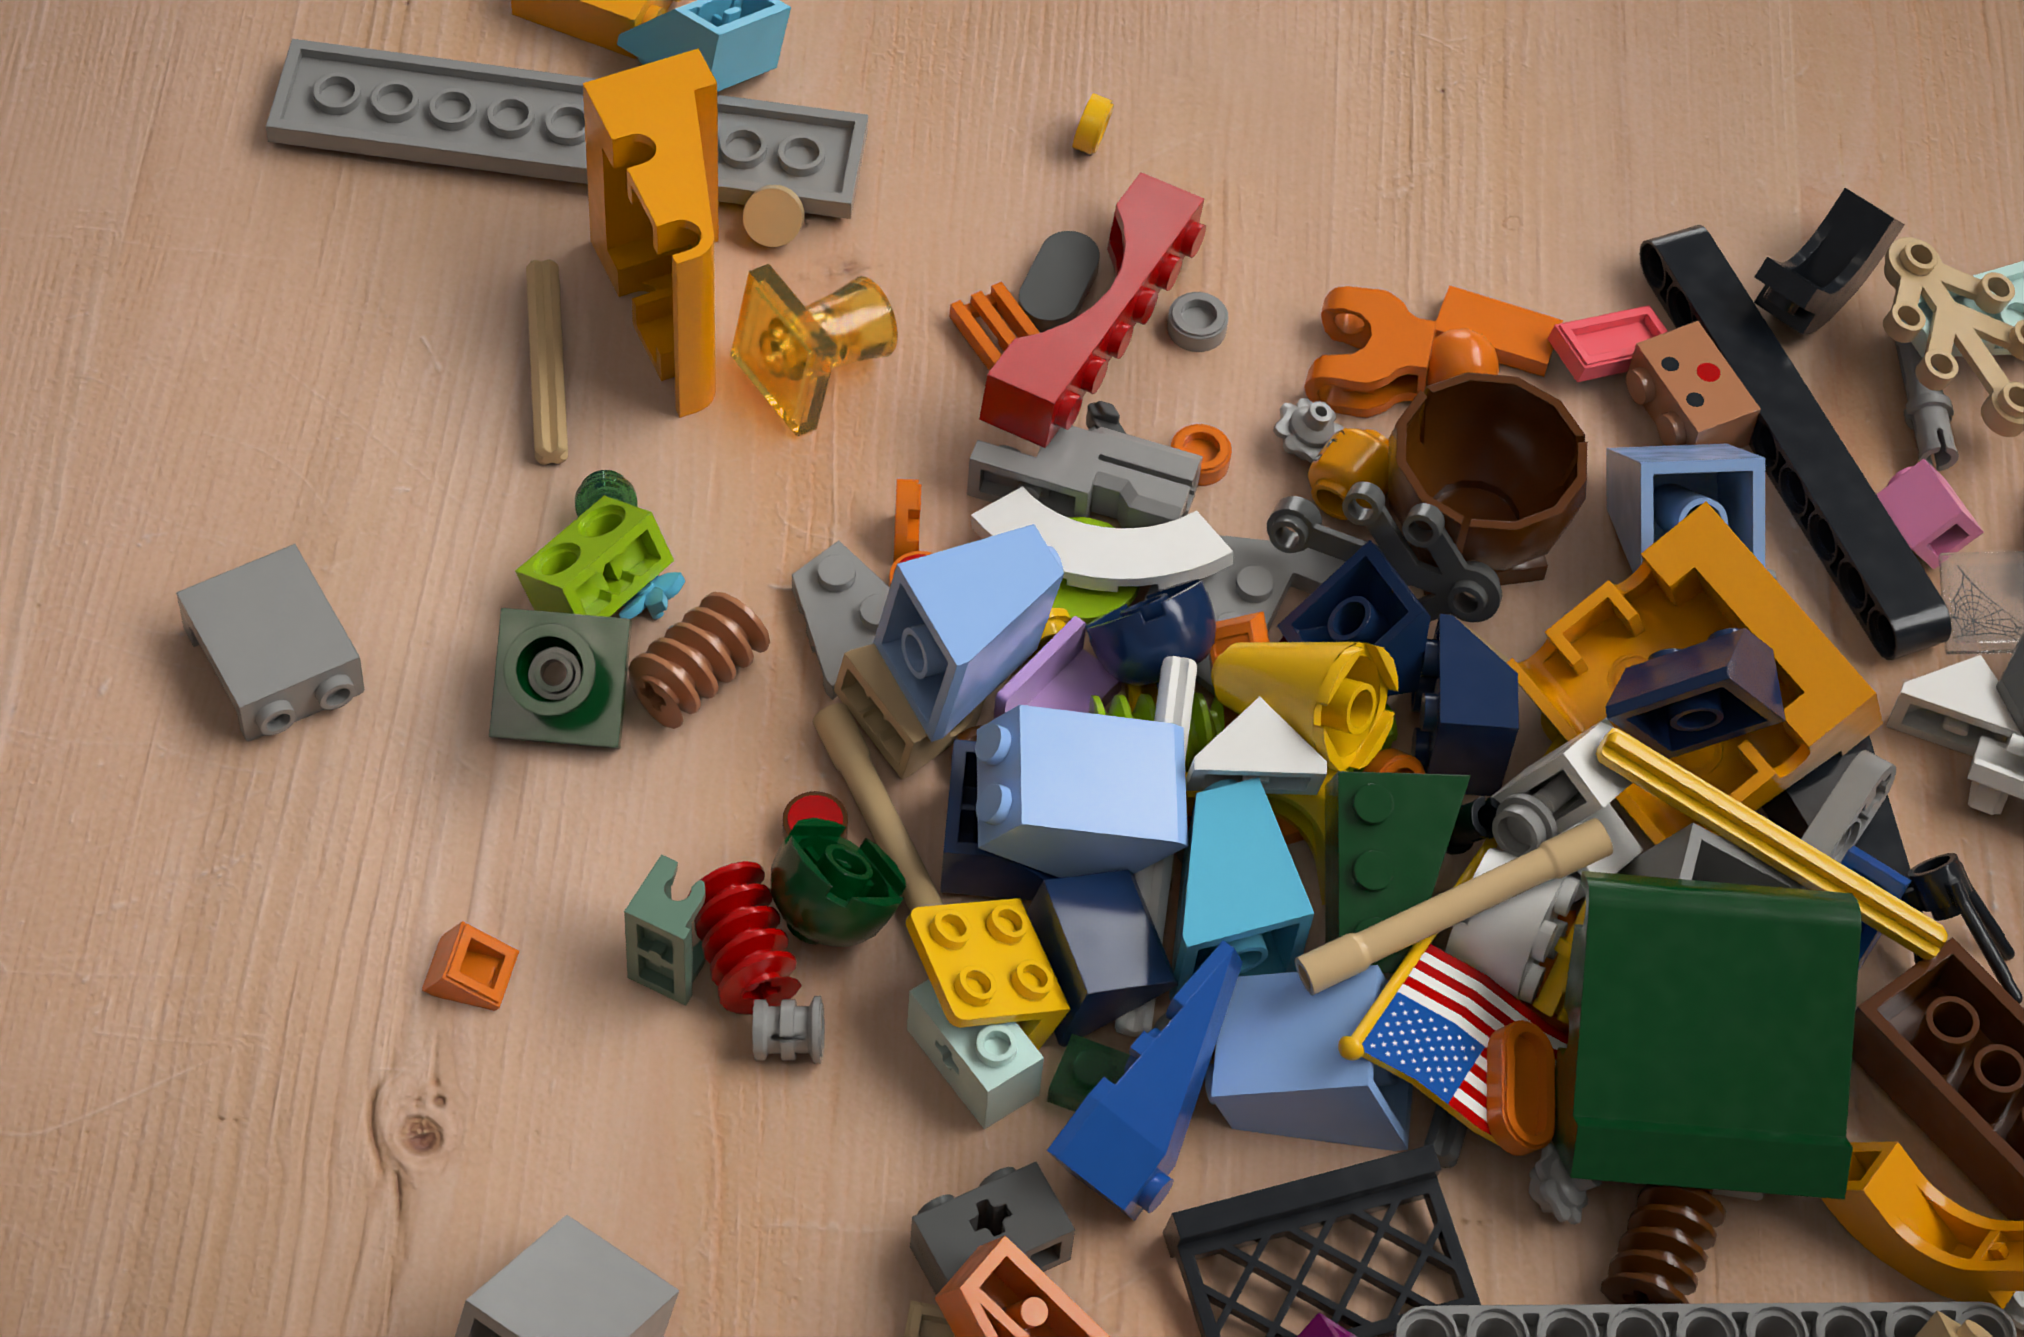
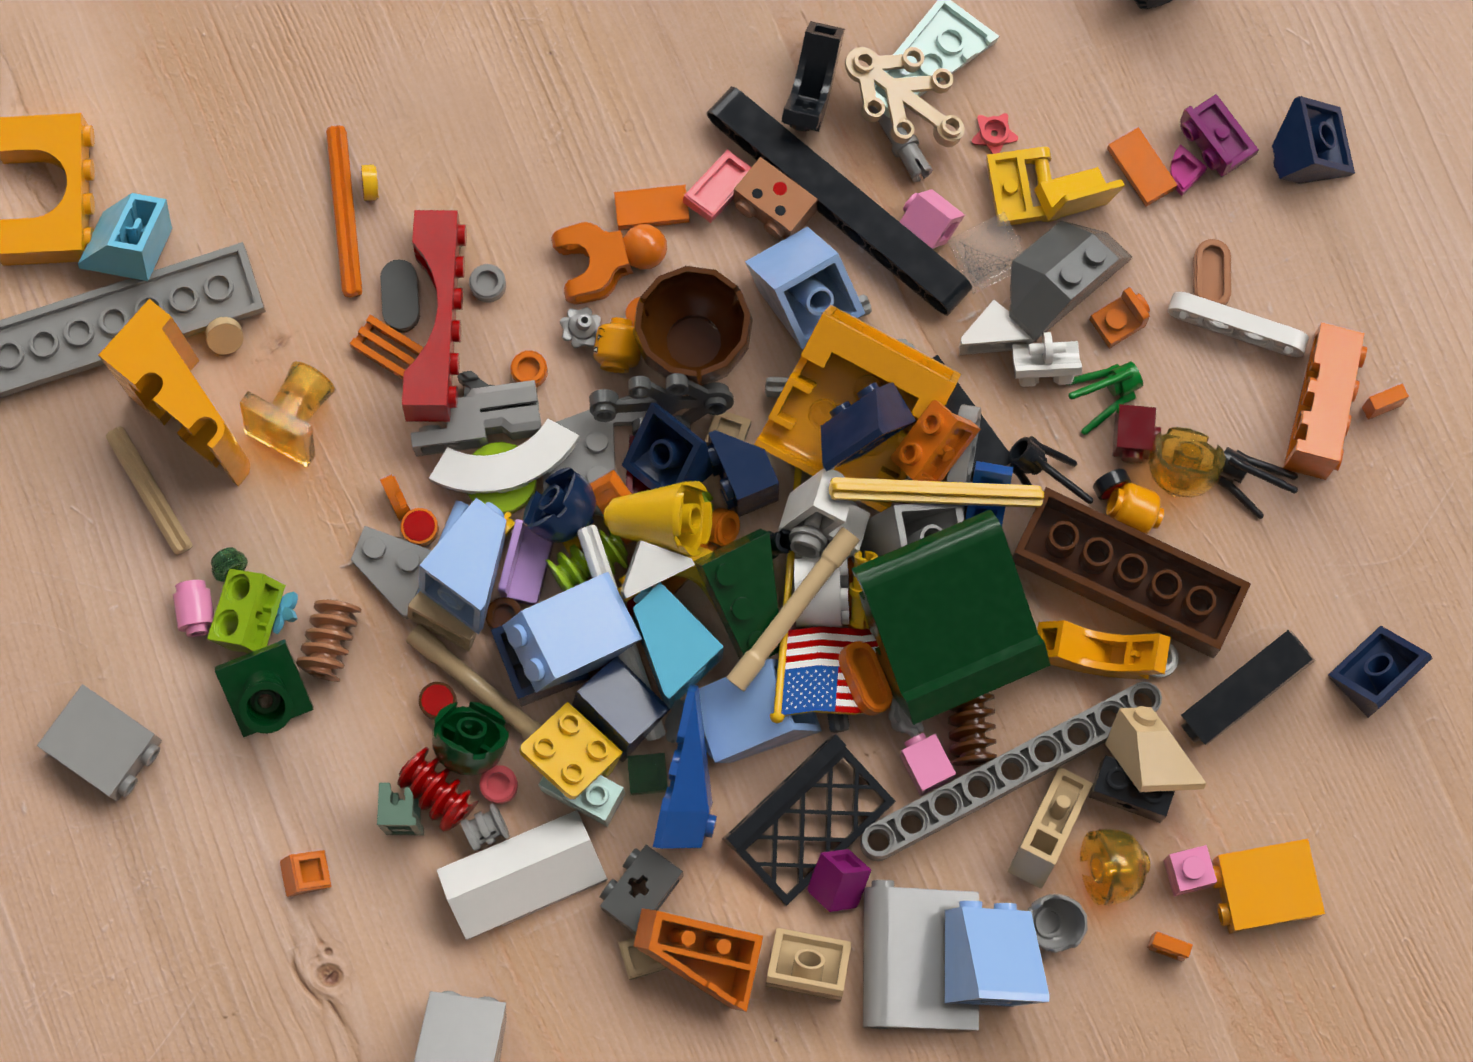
camera: 20 degrees left, 20 degrees up
(519, 527) = (193, 607): none -> bright pink brick
(808, 1129) = (521, 875): none -> white slope
(845, 983) = (499, 784): none -> coral tile
(1035, 148) = (344, 211): none -> orange axle
(1563, 1261) = (927, 763): none -> bright pink brick
(1803, 771) = (934, 443): none -> orange bracket

